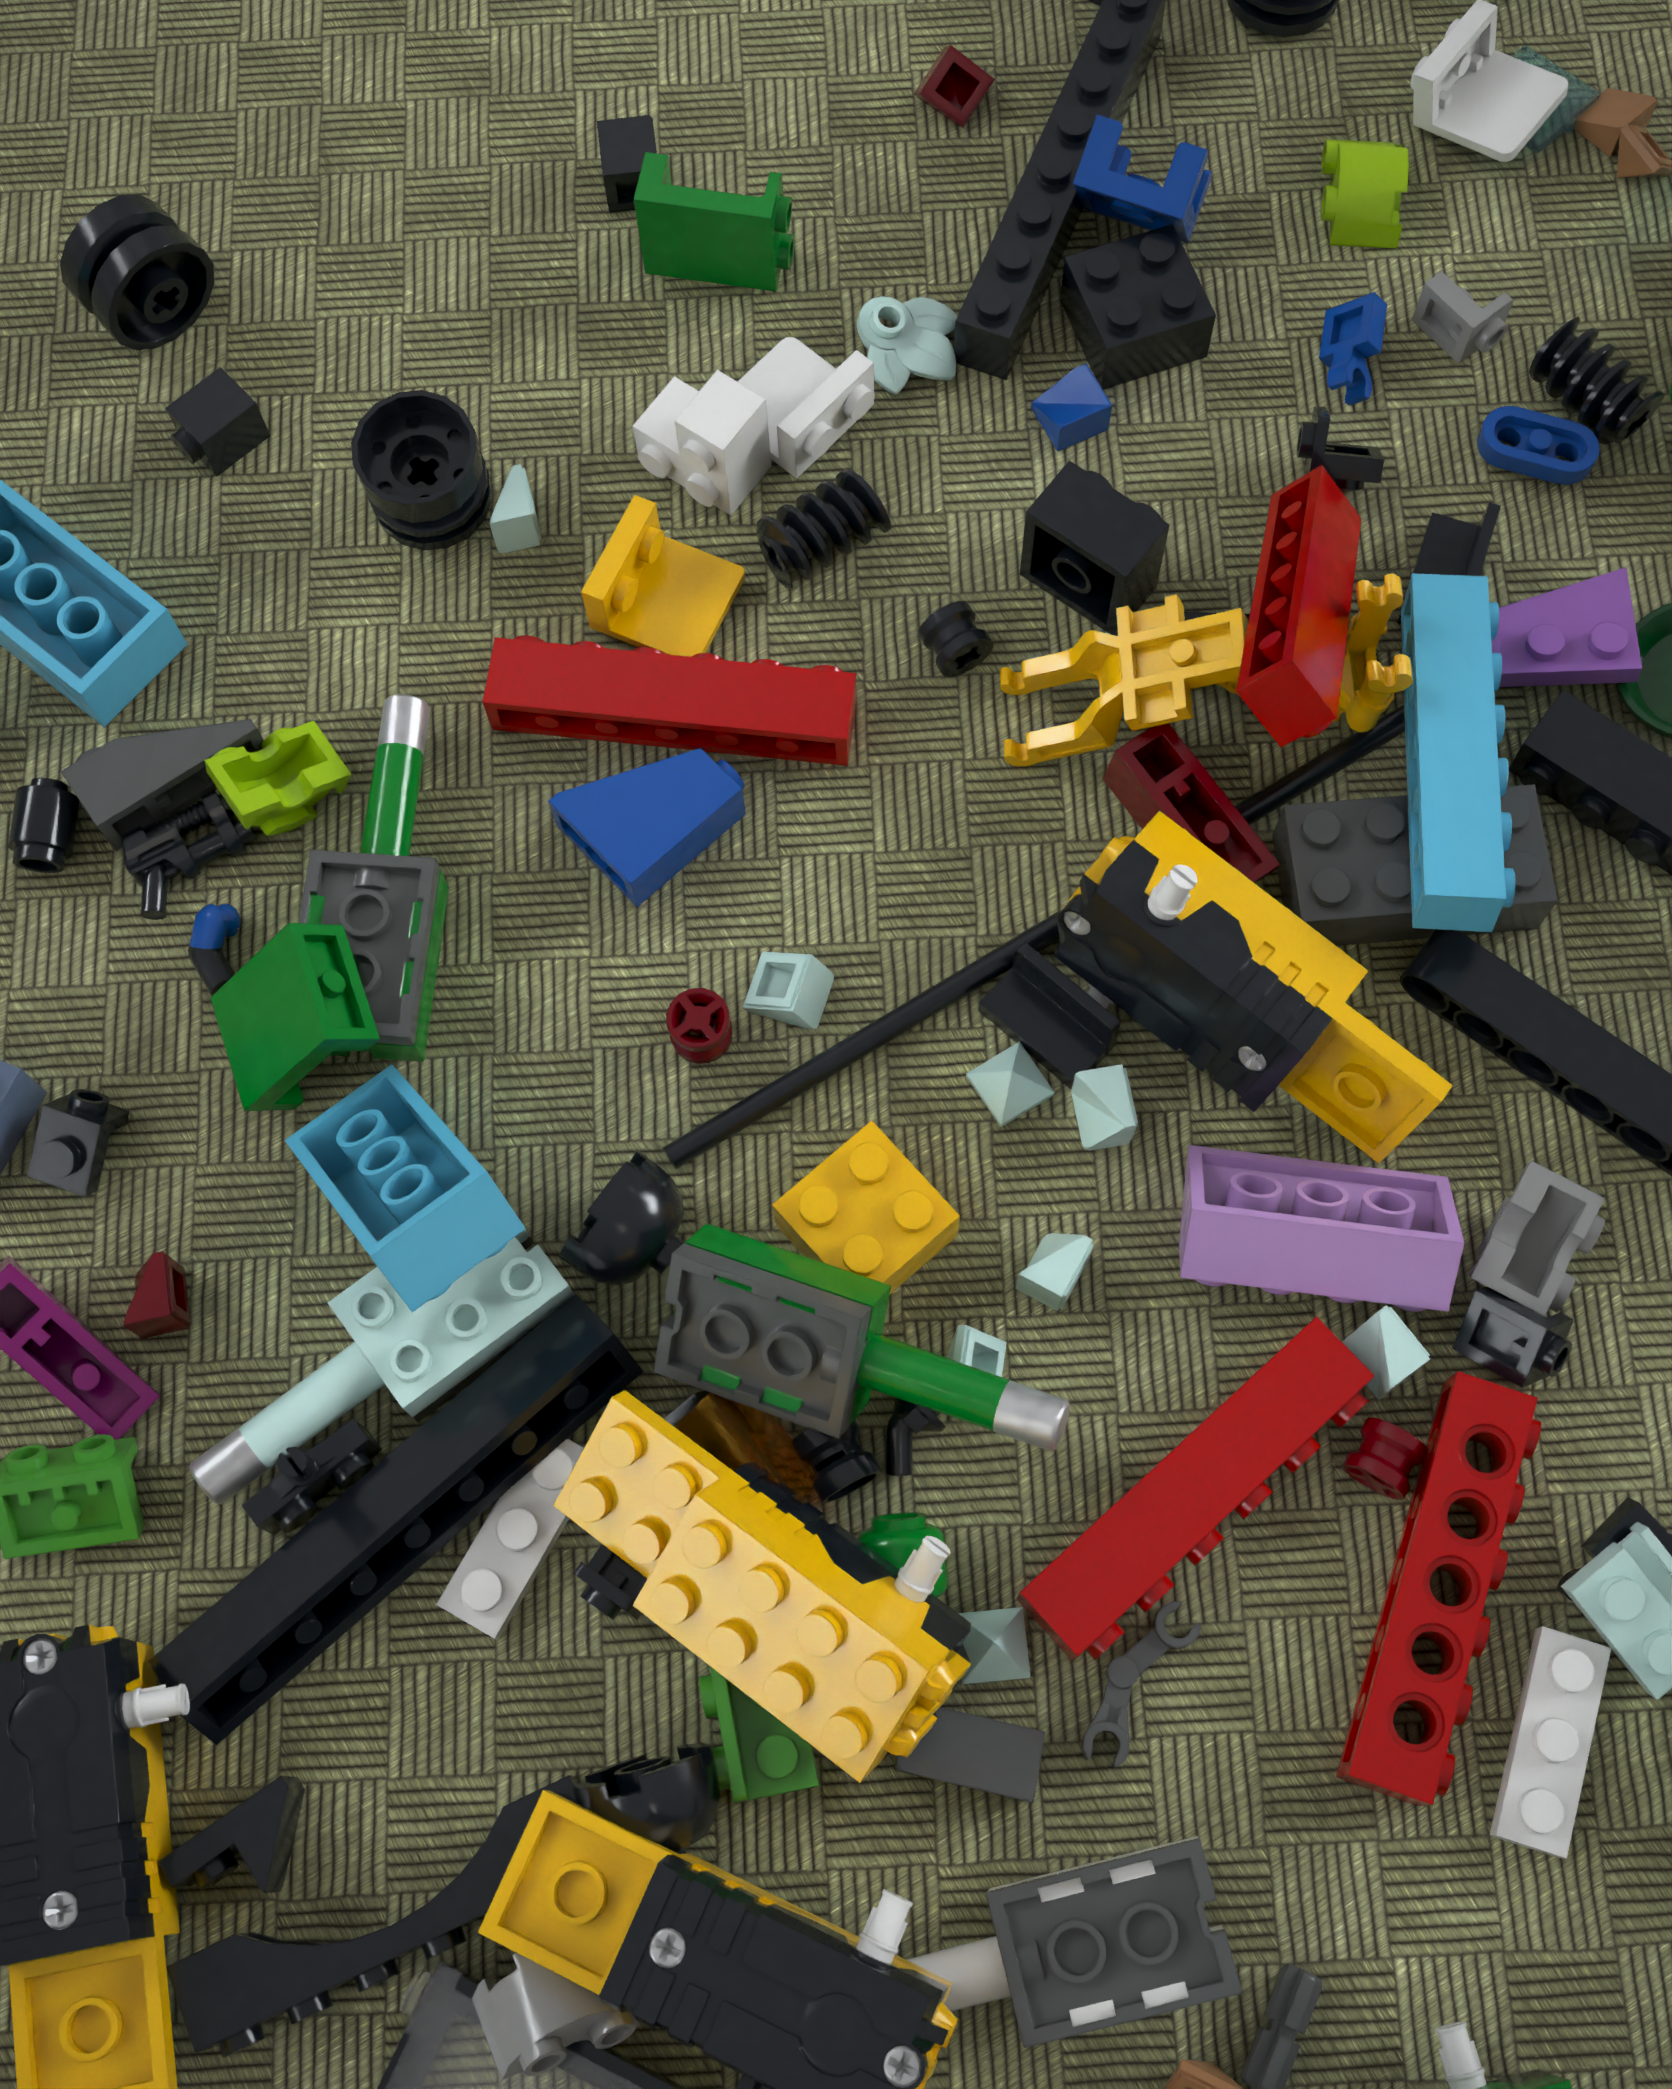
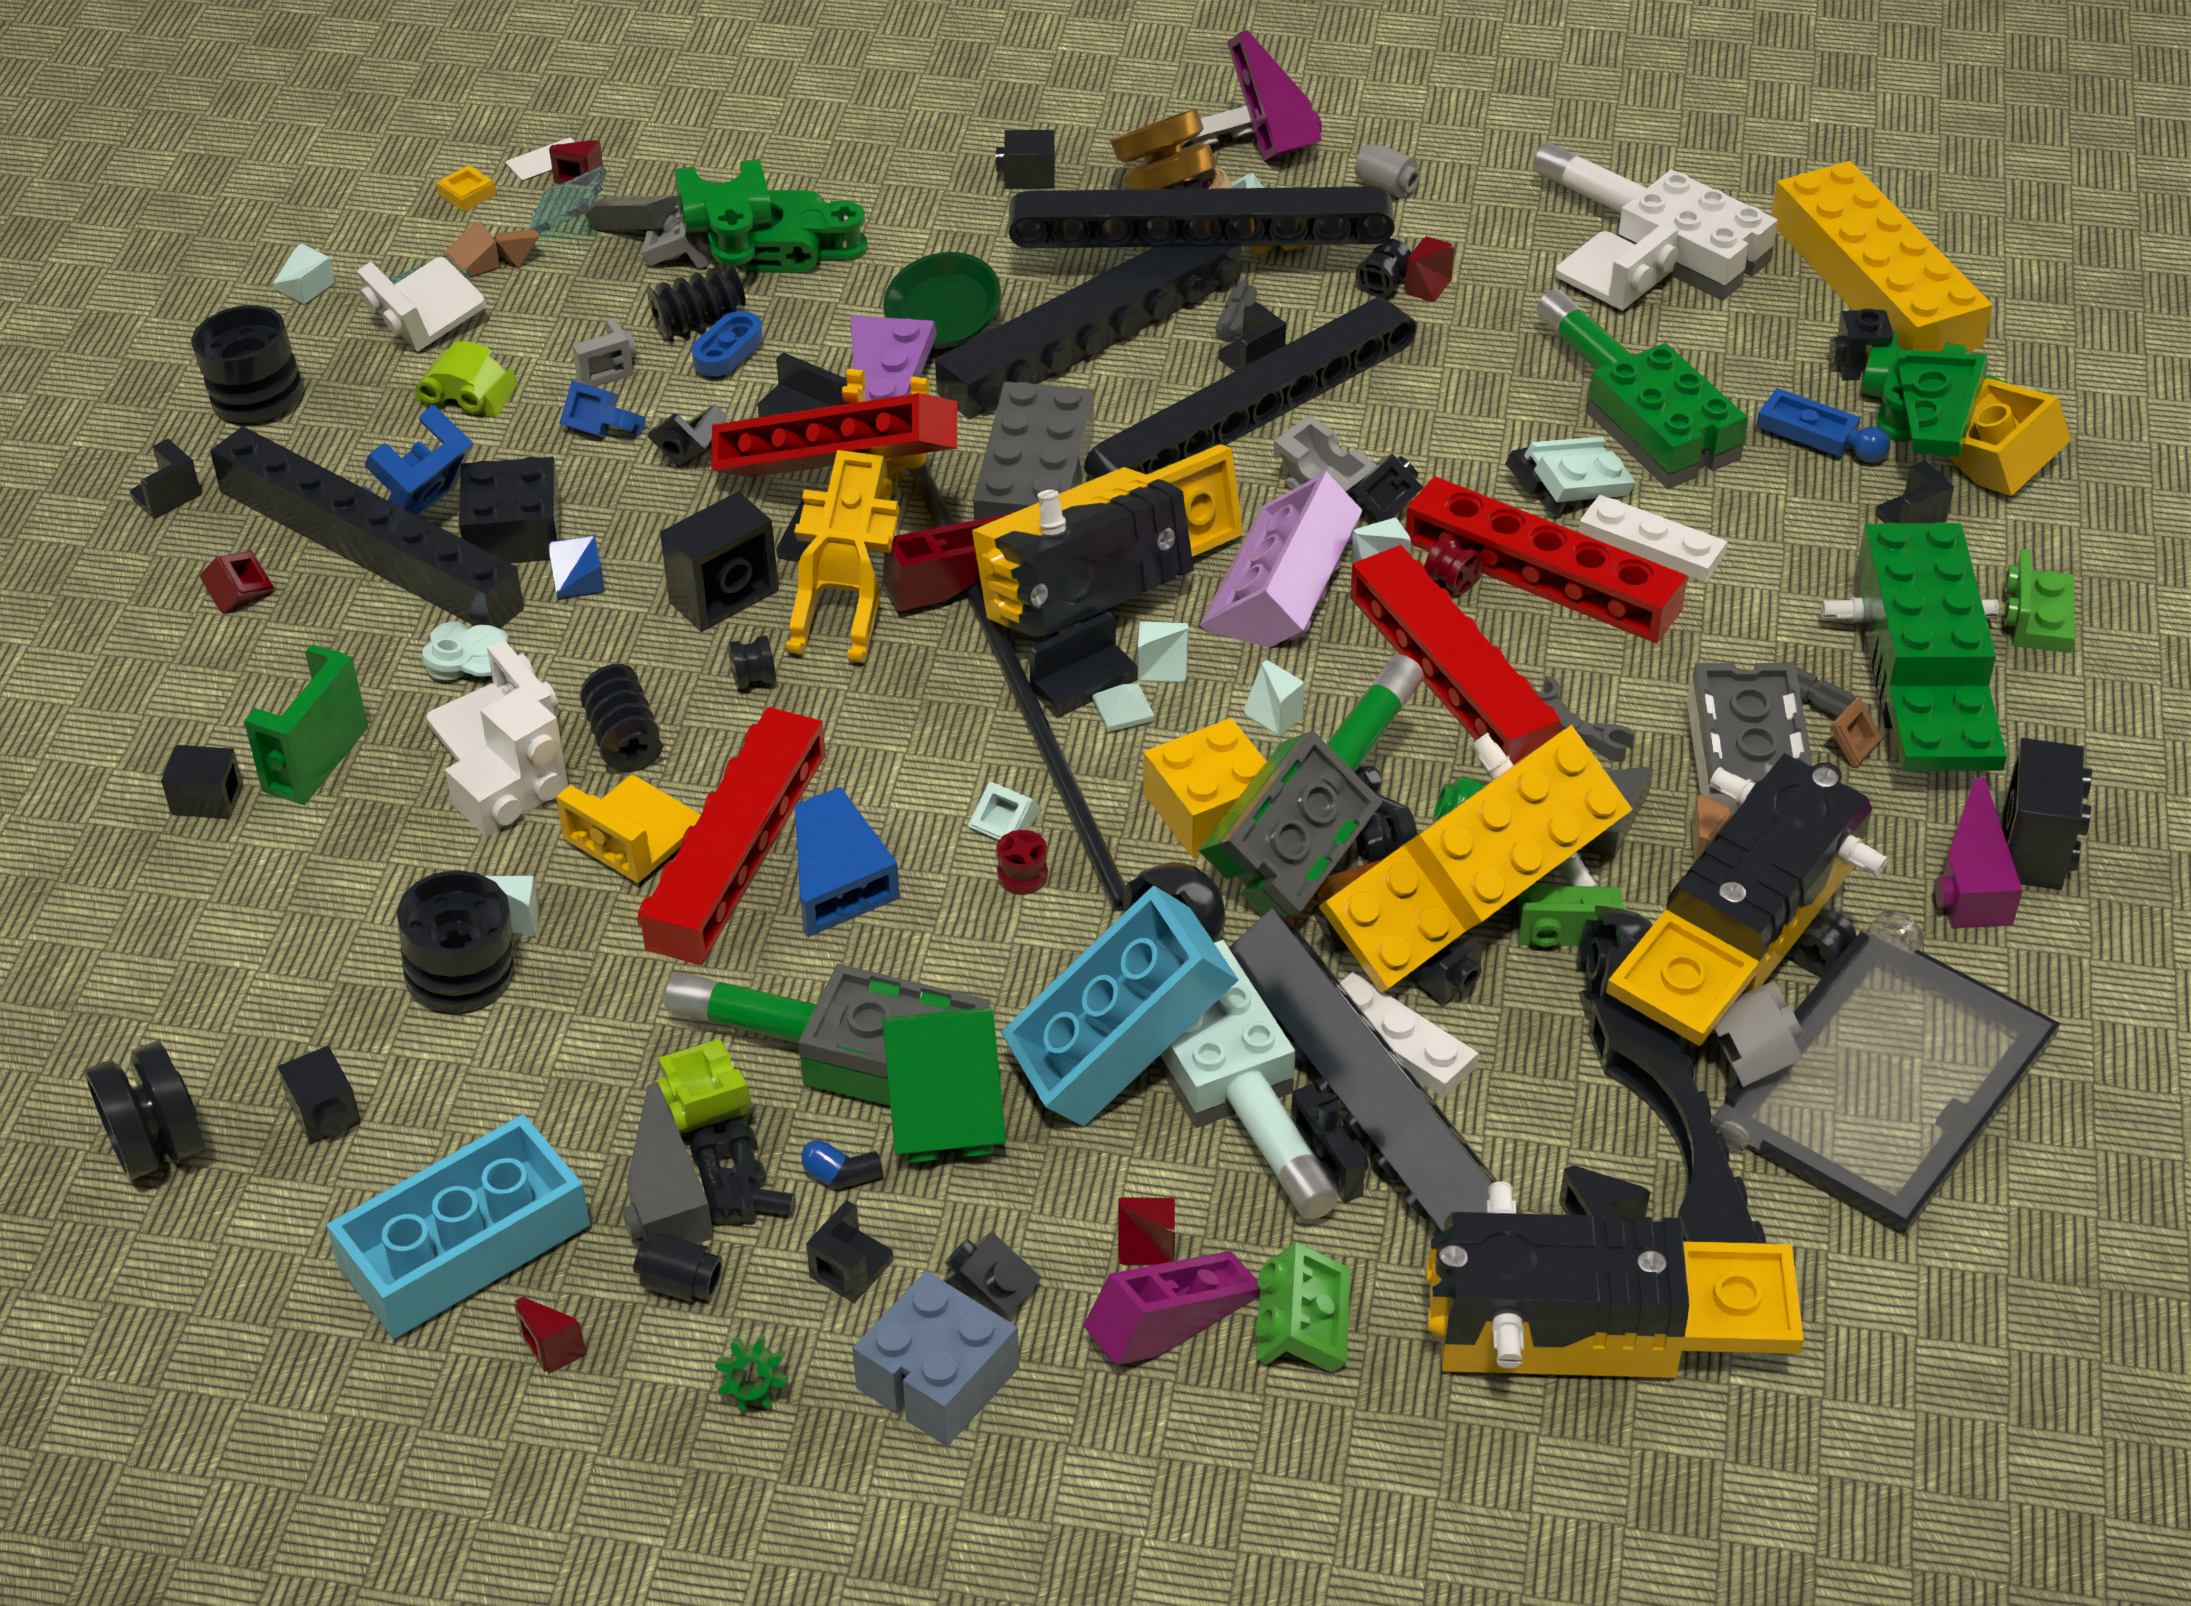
camera: 80 degrees left, 25 degrees down
(84, 988) = (846, 1257): none -> black panel
(942, 1898) = (1707, 822): none -> medium nougat slope
(1453, 755) = (995, 396): medium azure brick -> none

